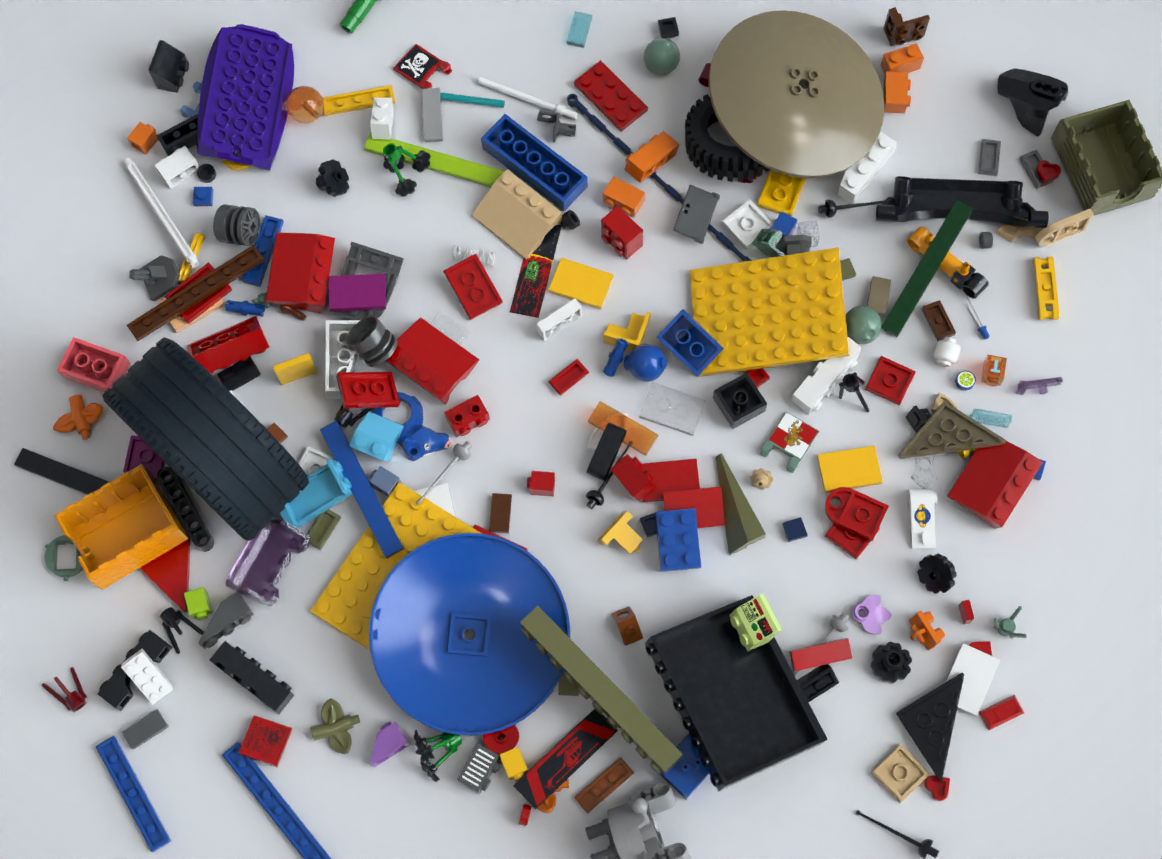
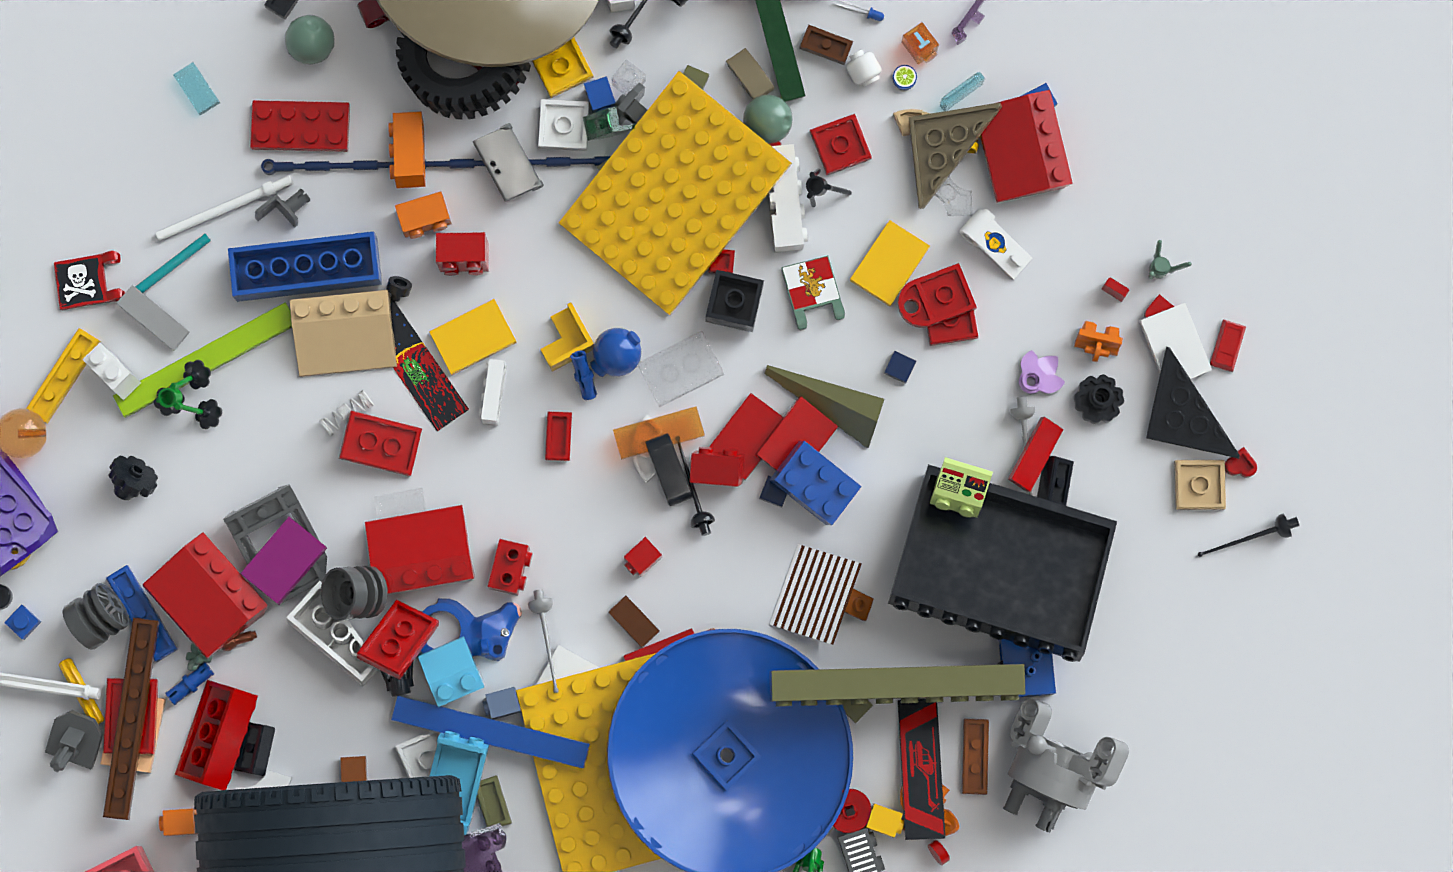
camera: 55 degrees left, 10 degrees up
(295, 369) = (307, 689): yellow tile -> none
(613, 600) = (815, 594): none -> sticker
(622, 534) = (758, 527): yellow piece -> none
(690, 342) = (634, 292): blue slope -> none
(761, 478) = (826, 351): tan plant -> none
(918, 417) = (901, 155): black brick -> none
(937, 573) = (1059, 281): black plant -> none

